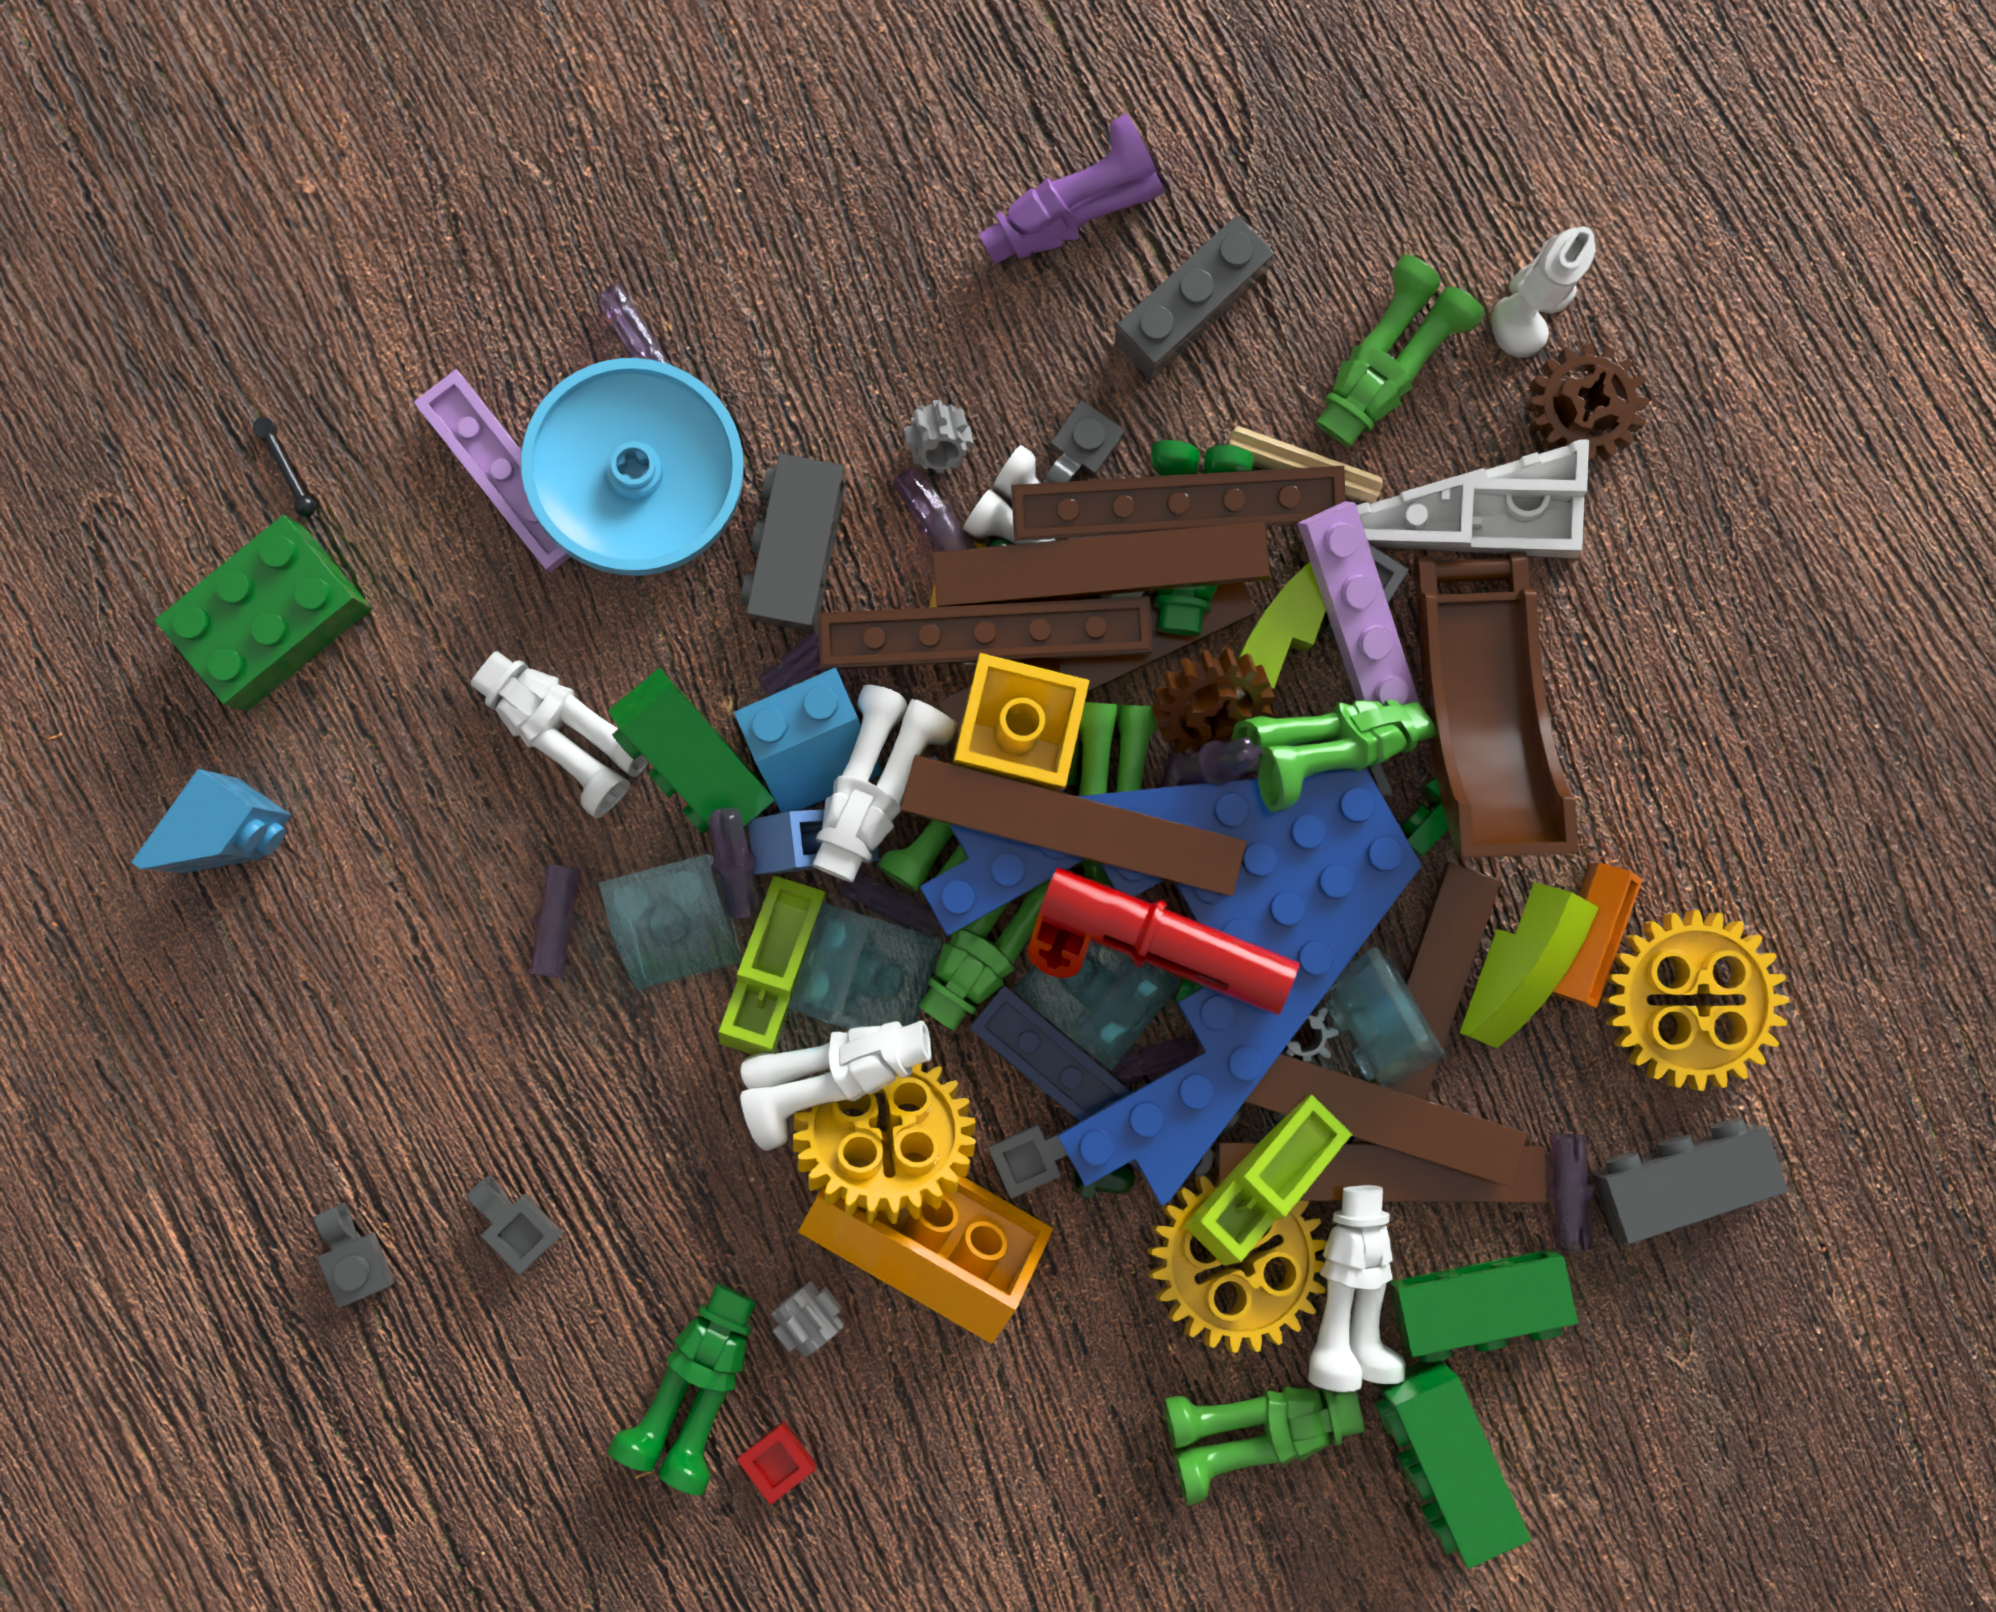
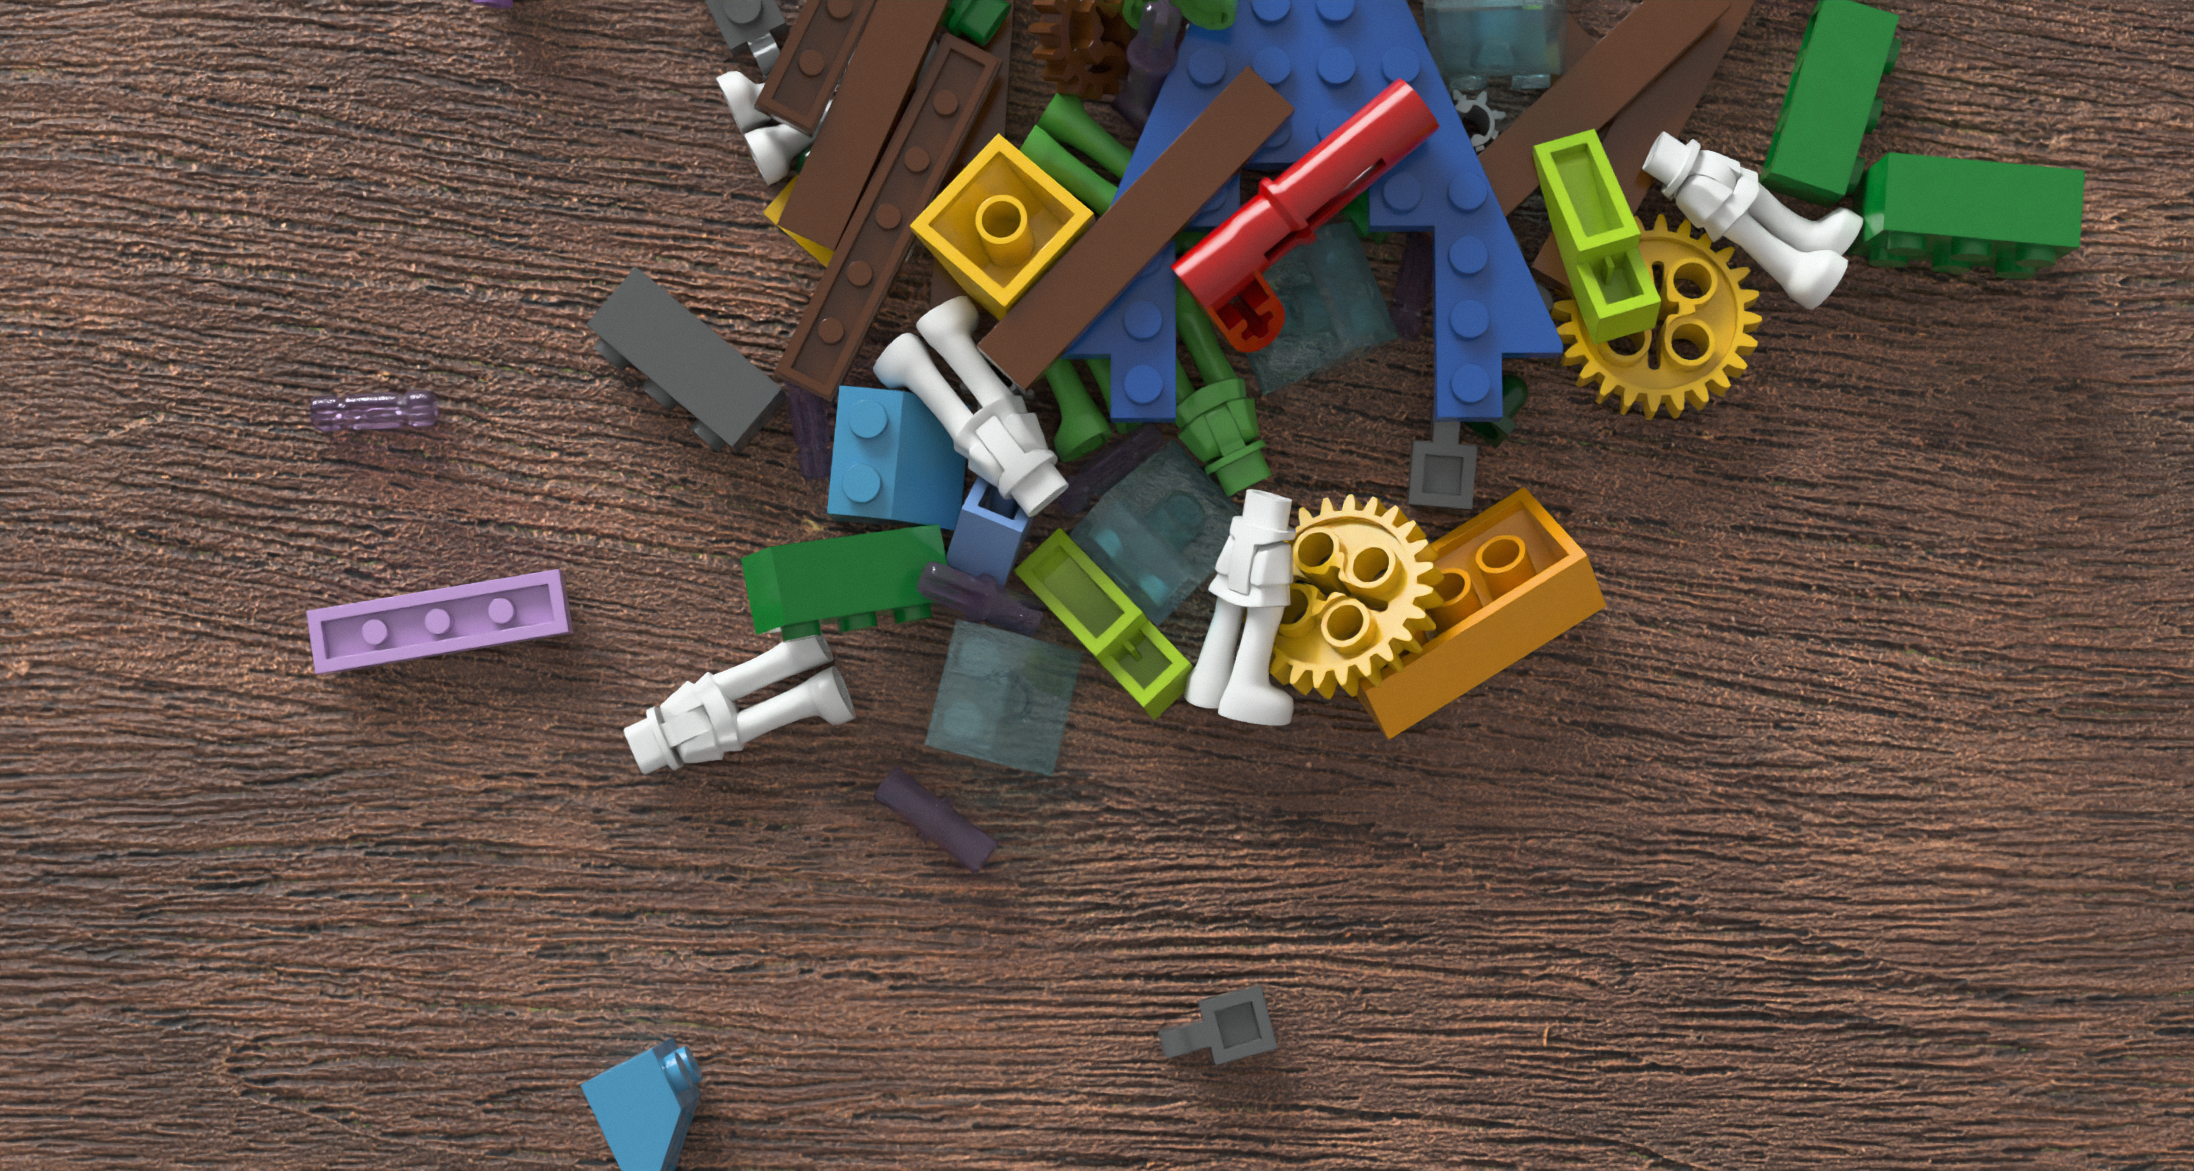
camera: 60 degrees left, 0 degrees up
(263, 614) = (449, 947): green brick -> none
(267, 430) = (254, 848): black hinge -> none
(632, 466) = (513, 482): medium azure dish -> none
(709, 1357) = (1461, 900): green piece -> none
(777, 1462) = (1607, 889): red plate -> none
(807, 1319) = (1481, 778): light grey gear -> none
(933, 516) = (738, 209): clear purple axle -> none
(938, 436) = (659, 157): light grey gear -> none
(1047, 1056) = (1350, 395): dark blue plate -> none
(1294, 1424) = (1844, 354): bright green piece -> none

